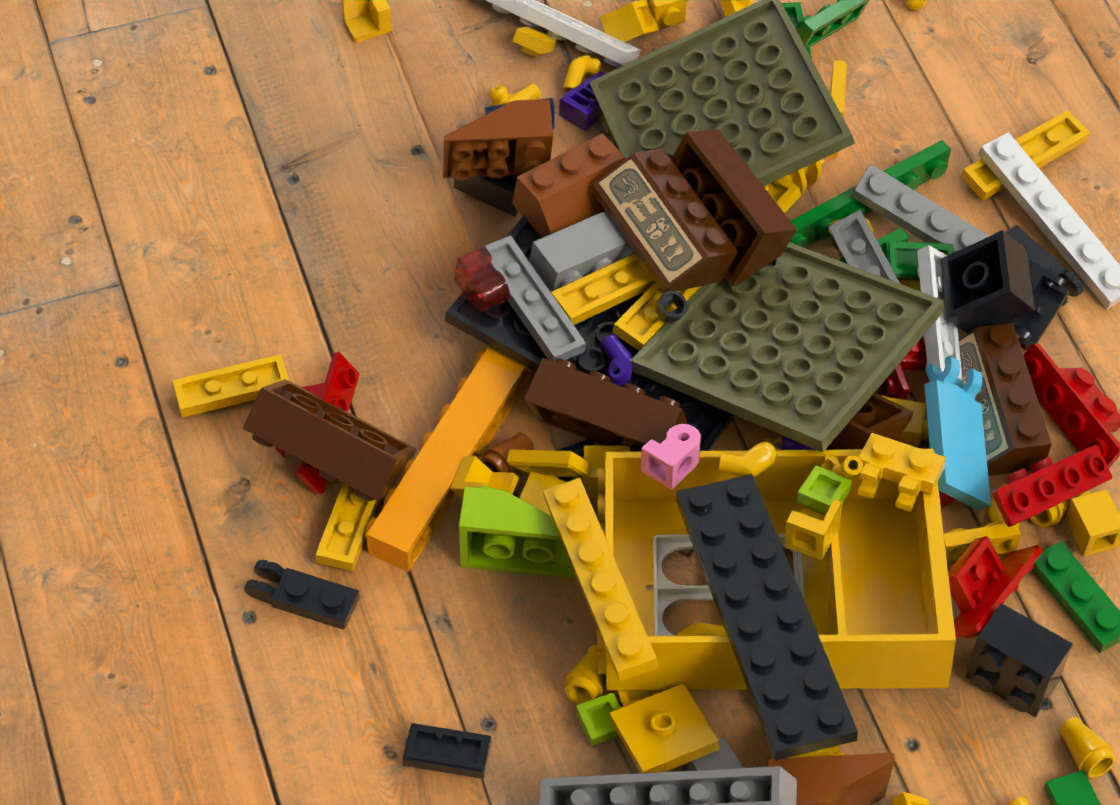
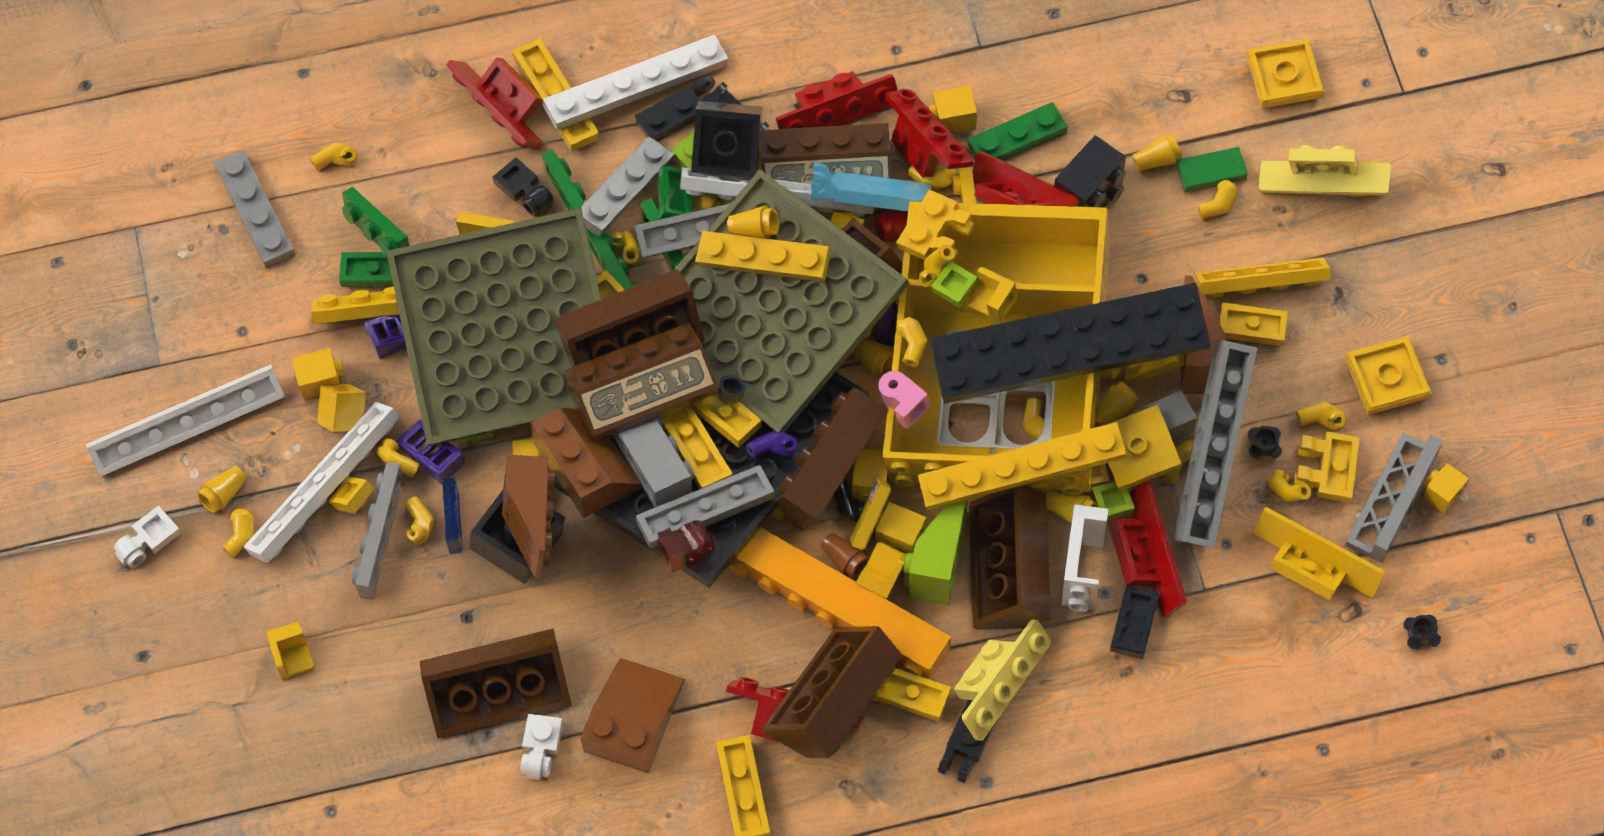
camera: 80 degrees left, 10 degrees up
(285, 218) = (540, 738): none -> white plate
(311, 283) = (631, 715): none -> dark orange slope
(341, 170) = (495, 683): none -> reddish brown slope
(364, 608) = (998, 676): none -> light yellow bracket
(478, 680) = (1089, 530): none -> white panel
(498, 65) = (375, 542): none -> light grey plate
(512, 618) = (1009, 559): none -> reddish brown slope
(536, 750) = (1146, 551): none -> red bracket
(729, 716) = (1116, 404): none -> yellow cone
(834, 316) = (763, 256): none -> yellow plate
(871, 299) = (758, 222): none -> yellow cone
(910, 133) = (519, 181): none -> black plate
(1007, 108) = (504, 95): none -> red bracket

